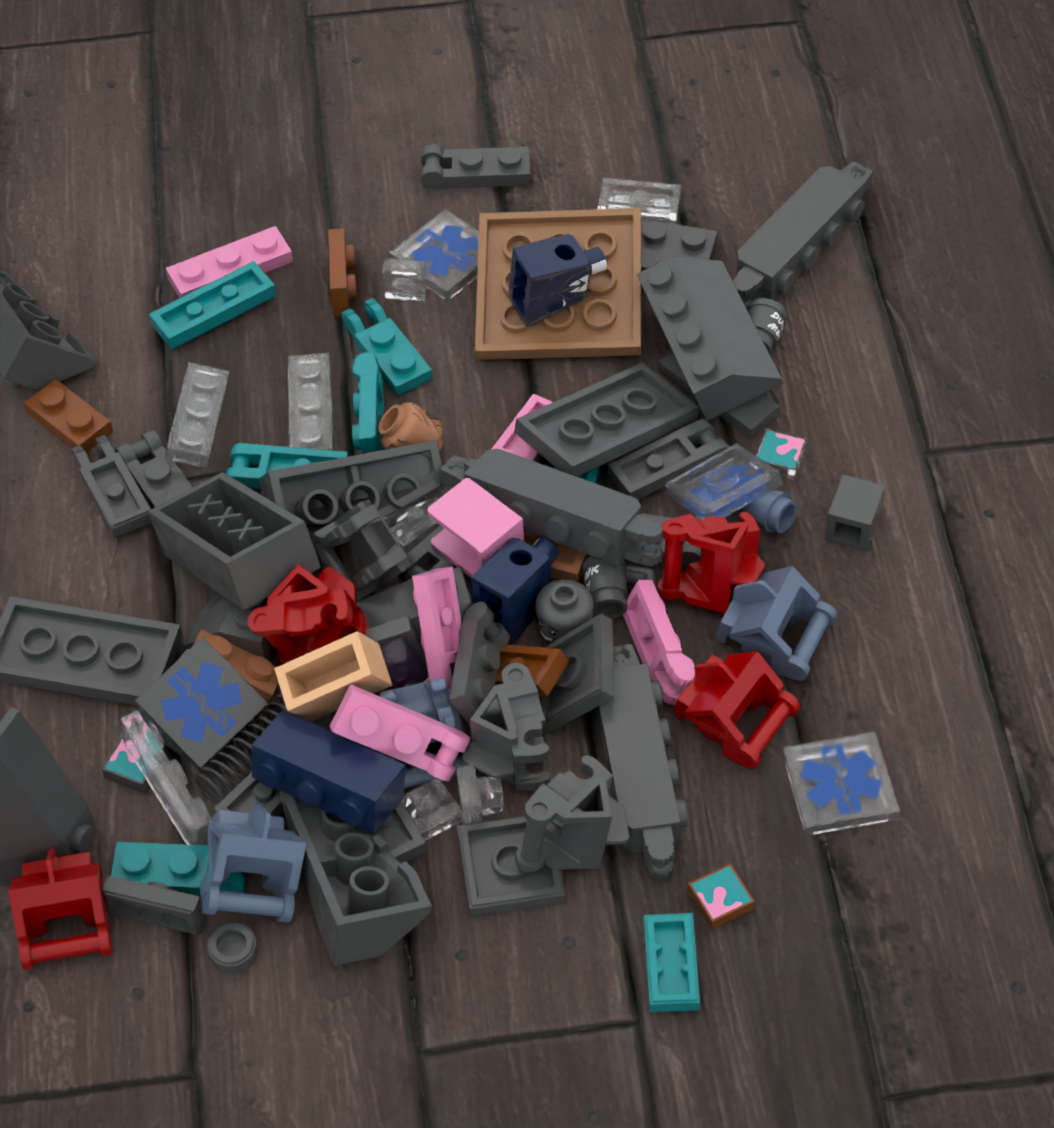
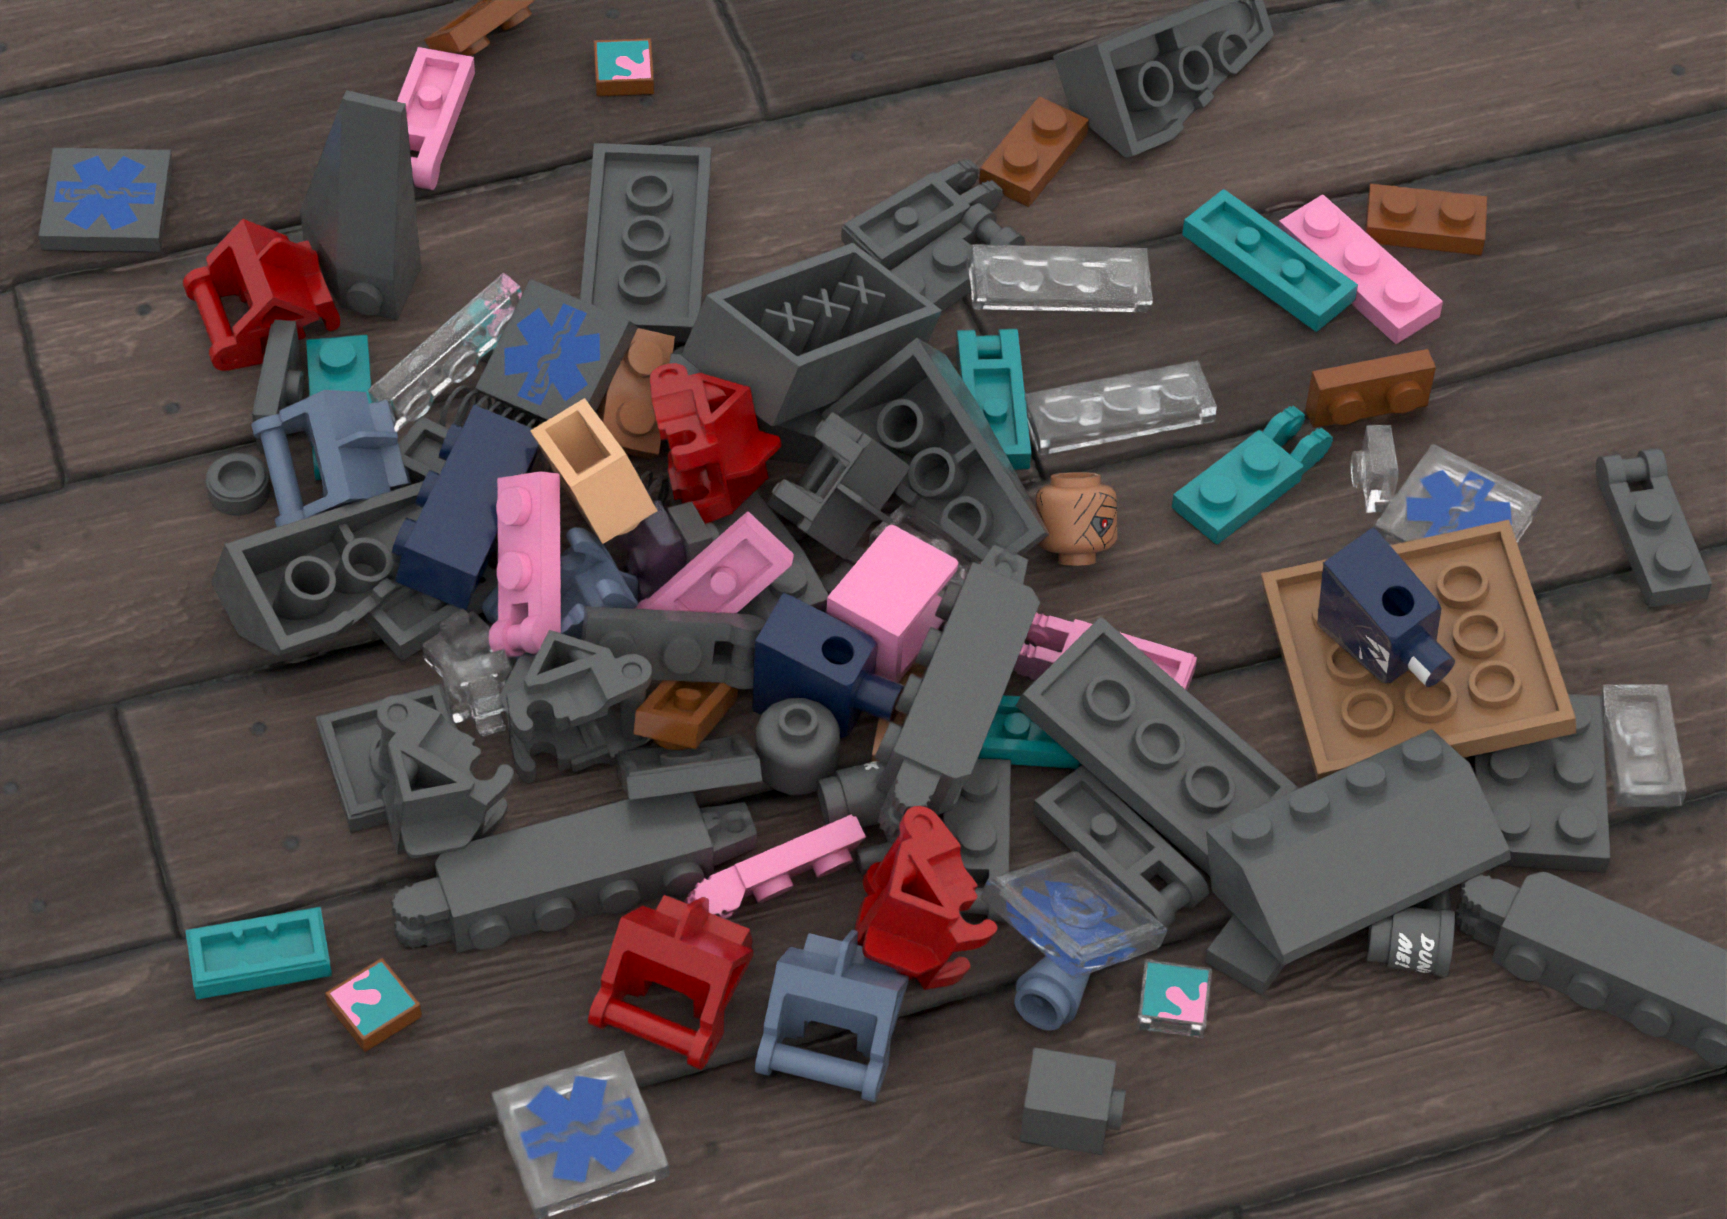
camera: 75 degrees right, 0 degrees up
(198, 224) = (1426, 219): none -> dark orange plate
(368, 403) = (1135, 465): teal hinge -> none

